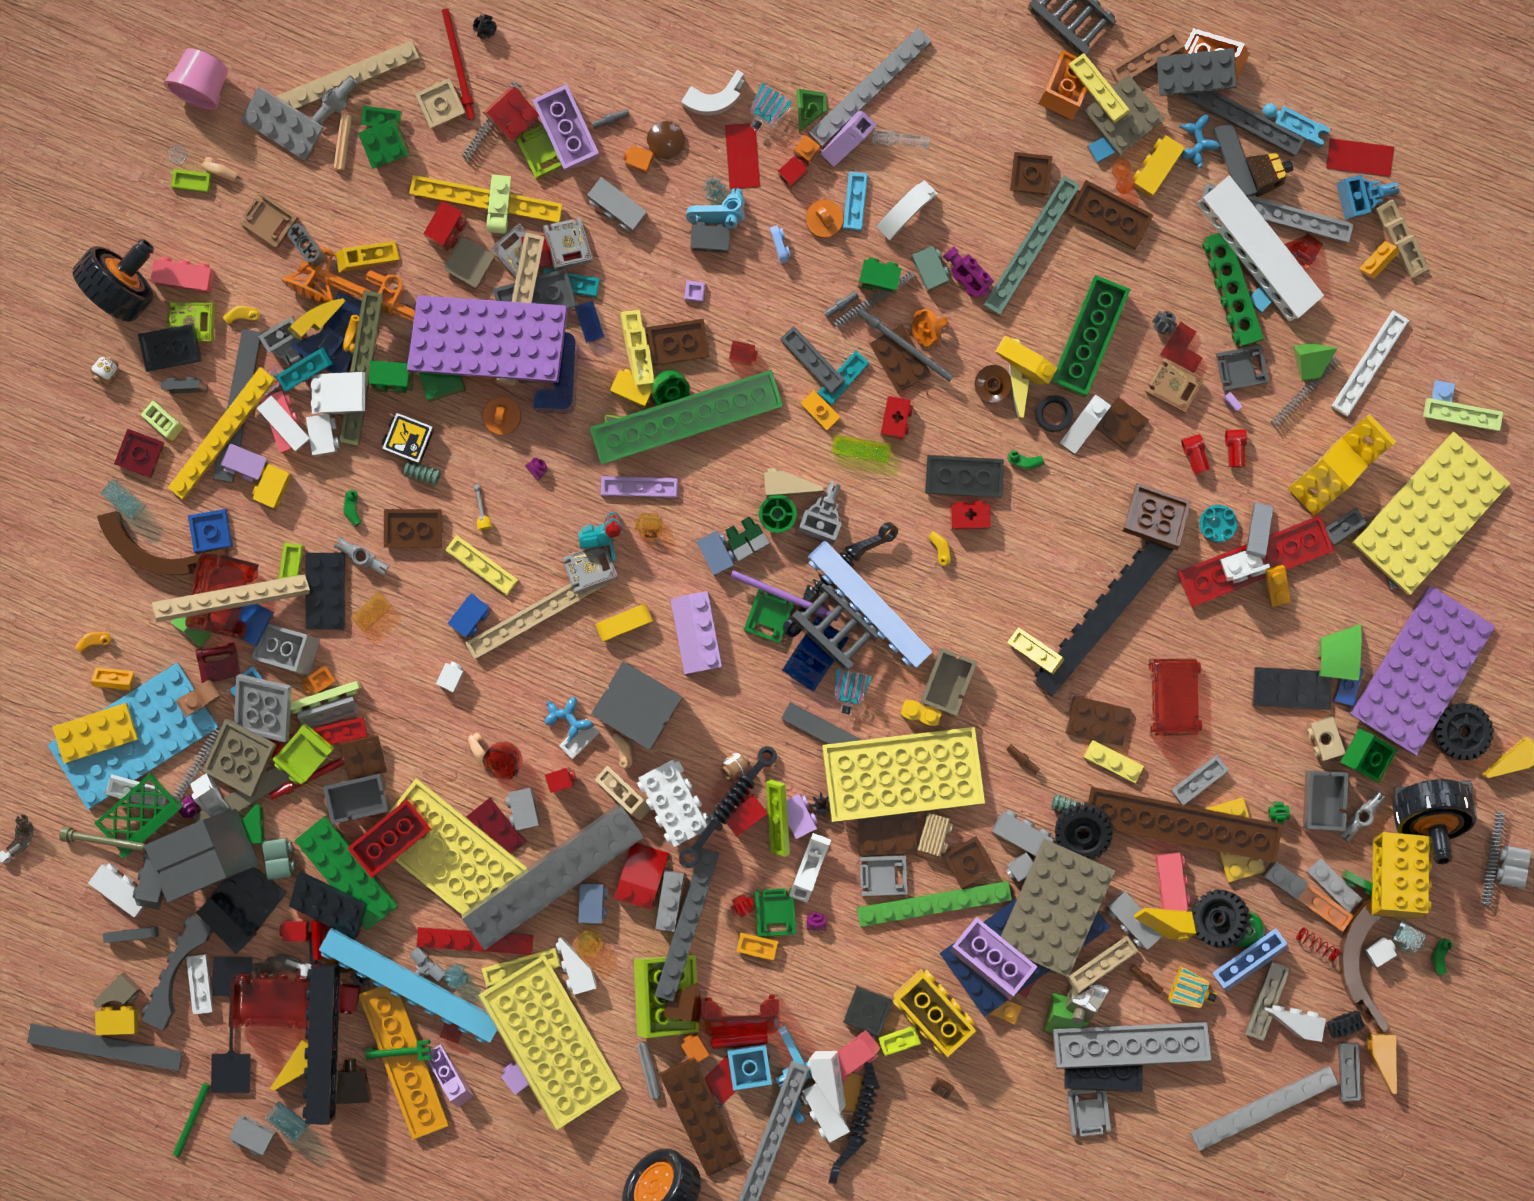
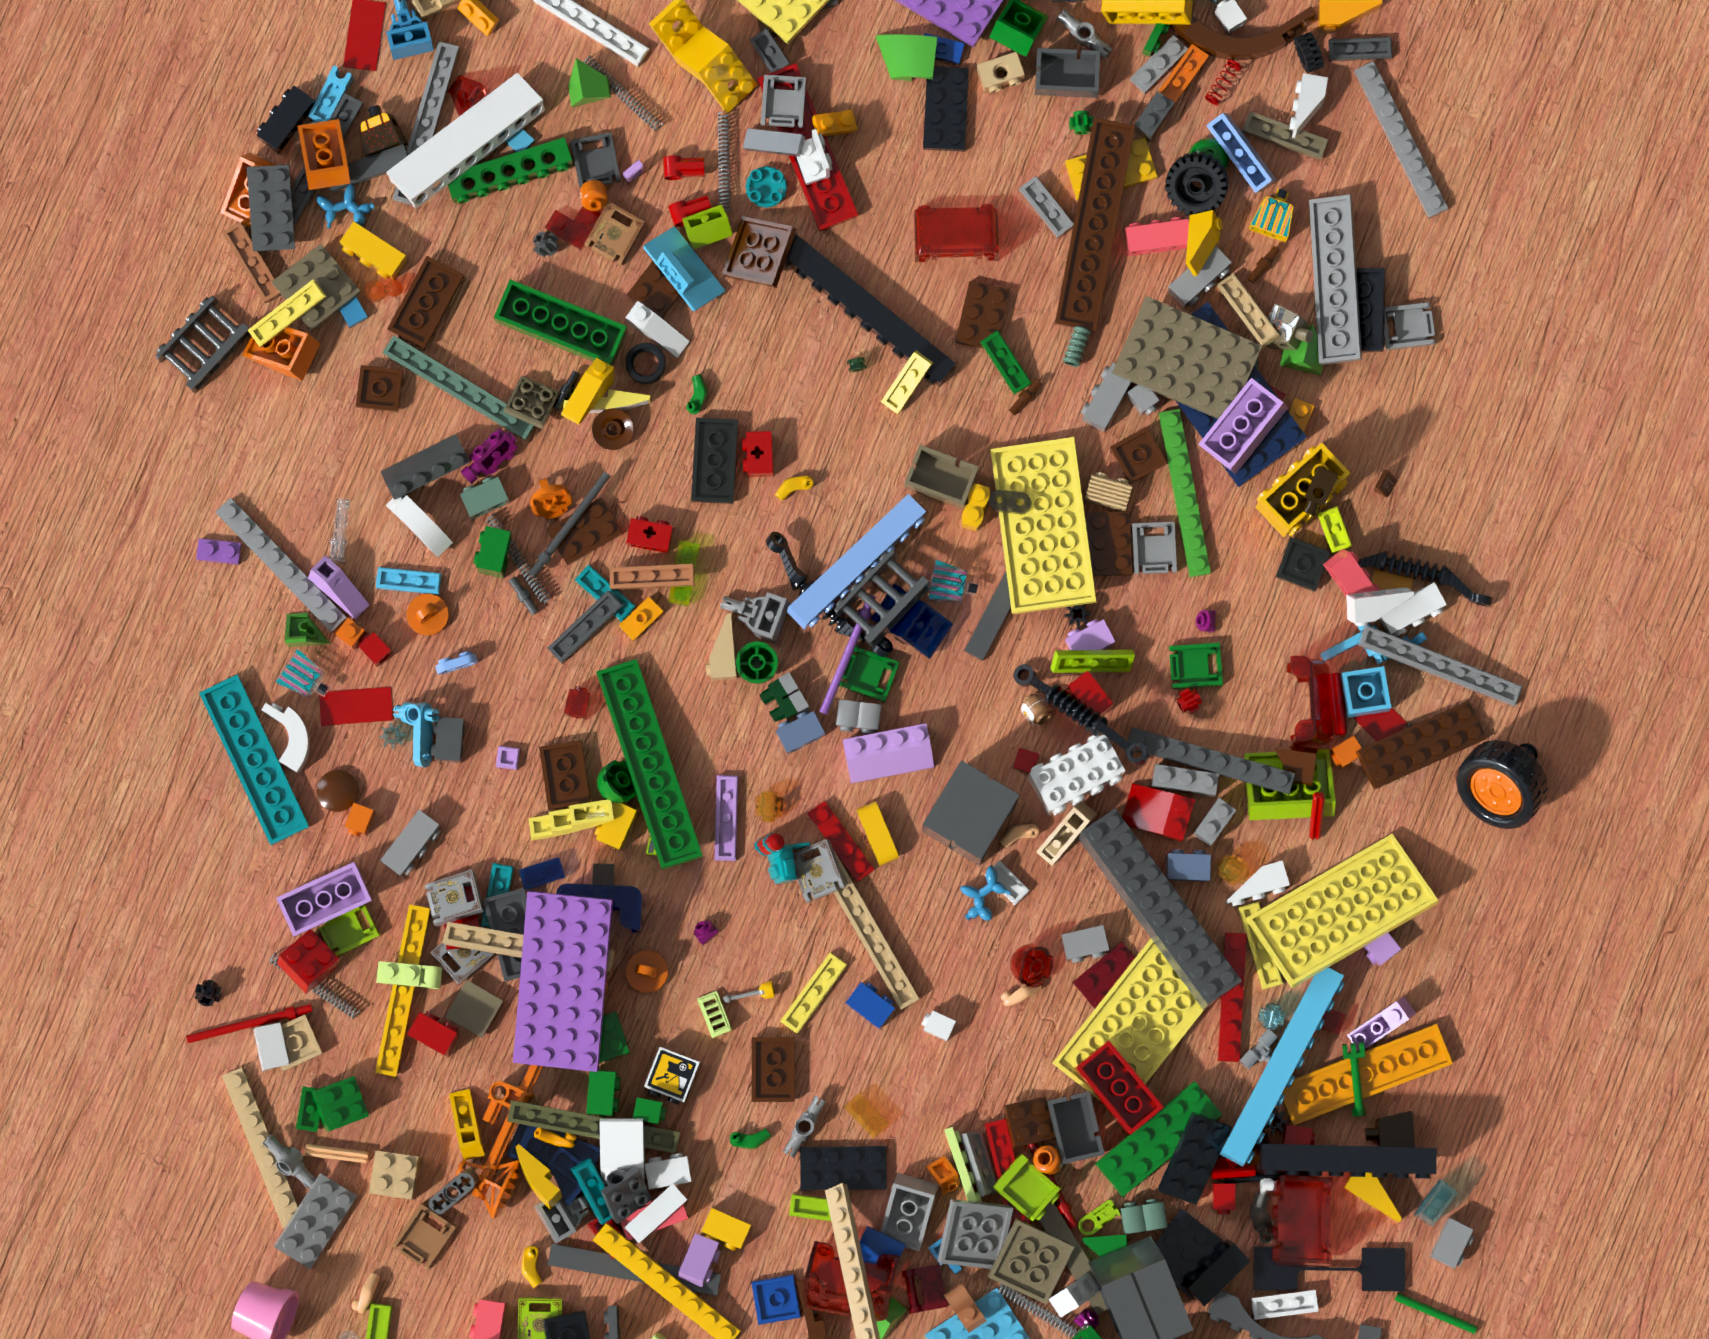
camera: 90 degrees left, 5 degrees down
(280, 819) = (1100, 1215): none -> lime piece
(300, 395) = (625, 1193): none -> dark grey plate
(322, 193) = (394, 1175): none -> tan brick
(328, 773) = (1047, 1160): none -> orange head
(375, 417) = (650, 1111): none -> green brick
(422, 473) = (711, 1060): sand green piece -> none
(436, 83) = (271, 1046): none -> white panel
(445, 476) = (720, 1031): none -> yellowish green slope
(560, 779) = (1052, 900): red brick -> none
(589, 377) = (603, 874): none -> clear smoke tile
(610, 119) = (313, 852): dark grey bar -> none
(617, 589) = (841, 841): none -> red plate
(632, 927) = (1214, 822): none -> light grey brick
(635, 1020) = (1316, 815): none -> red axle
(648, 1070) = (1372, 804): light grey axle -> none
(689, 756) = (1025, 760): none -> red tile
(693, 65) = (254, 760): none -> teal plate
(730, 605) = (858, 716): none -> light grey brick
(757, 946) = (1233, 685): light orange plate -> none
(809, 867) = (1146, 627): white arch -> none
(857, 419) = (652, 576): none -> nougat plate
(882, 31) = (218, 551): none -> medium lavender plate
(923, 743) = (1009, 502): none -> clear smoke plate
(939, 1030) = (1323, 480): none -> dark brown torso
(958, 214) = (425, 466): none -> dark grey brick
(1018, 310) = (531, 402): none -> dark tan tile
(1029, 342) = (566, 390): none -> black bar
(1052, 605) = (856, 364): none -> clear green bush
(1054, 741) = (1005, 362): none -> green tile
(1087, 818) = (1089, 329): black wheel -> none
(1113, 761) = (1027, 299): light yellow plate -> none
(1141, 448) = (684, 269): none -> medium azure bracket
(1180, 469) = (707, 227): none -> lime brick
(1209, 365) = (593, 195): none -> orange head
(1242, 483) = (720, 165): none -> light grey piece
(1246, 119) = (324, 154): none -> orange slope
(1280, 85) = (285, 119): none -> black brick
(1294, 538) = (783, 106): none -> light grey container

